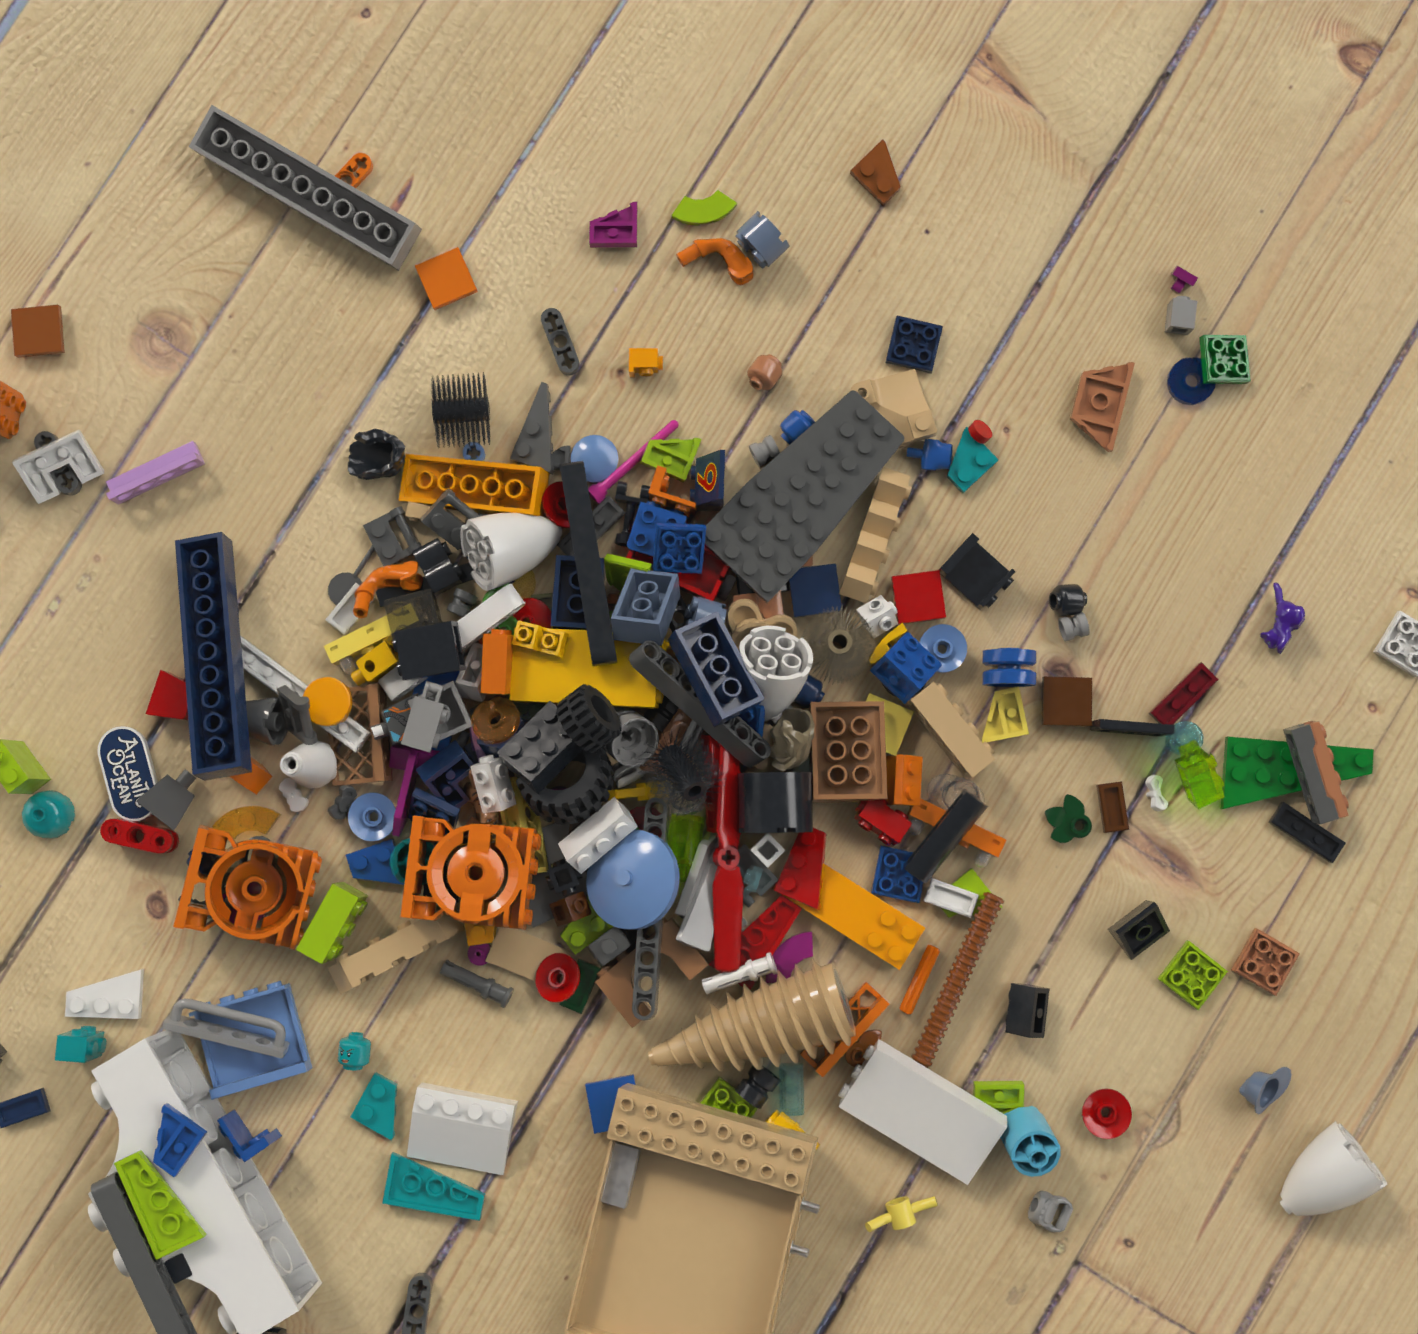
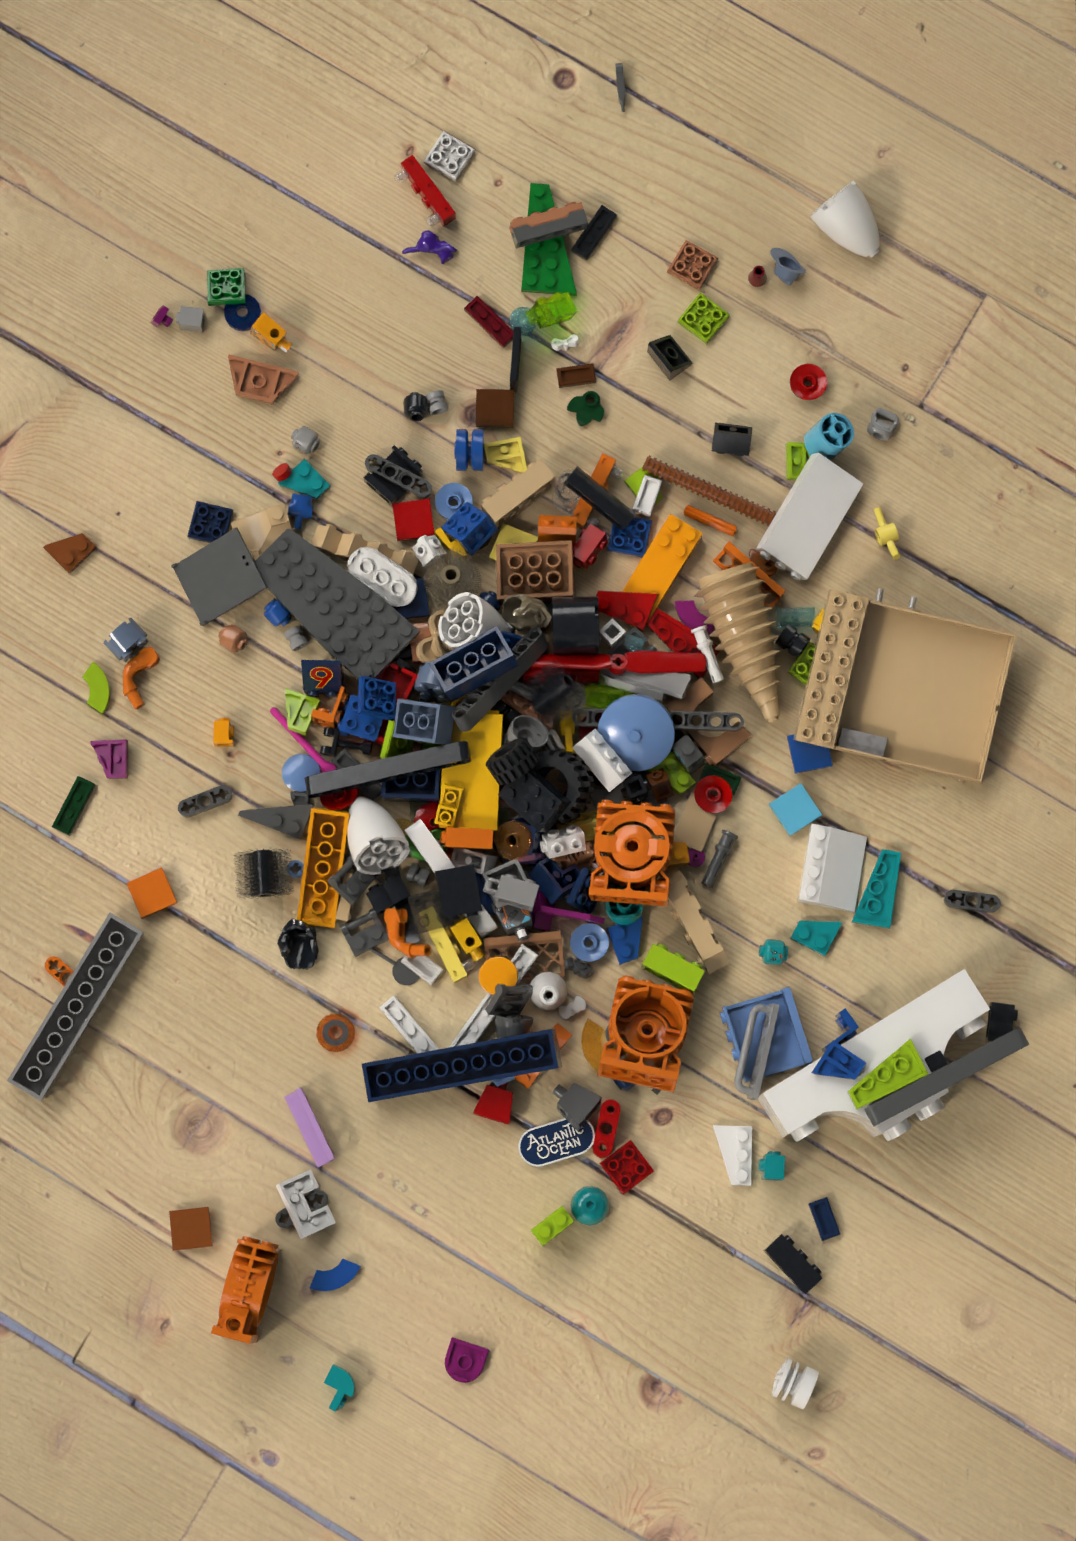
camera: 95 degrees left, 5 degrees down
(94, 861) = (626, 1167): none -> red tile
(260, 493) = (335, 1021): none -> clear orange tile
(273, 593) = (407, 1026): none -> white tile
(538, 1083) = (795, 809): none -> medium azure tile
(557, 184) = (73, 805): none -> dark green tile
(840, 556) = (383, 576): none -> white tile
(842, 354) = (219, 576): none -> dark grey door
(976, 578) = (399, 474): none -> dark grey beam
(1022, 460) = (305, 440): none -> light grey head
(1169, 407) = (264, 328): none -> light orange torso
(1245, 1048) = (755, 279): none -> dark red cone
(1352, 620) = (432, 197): none -> red piece

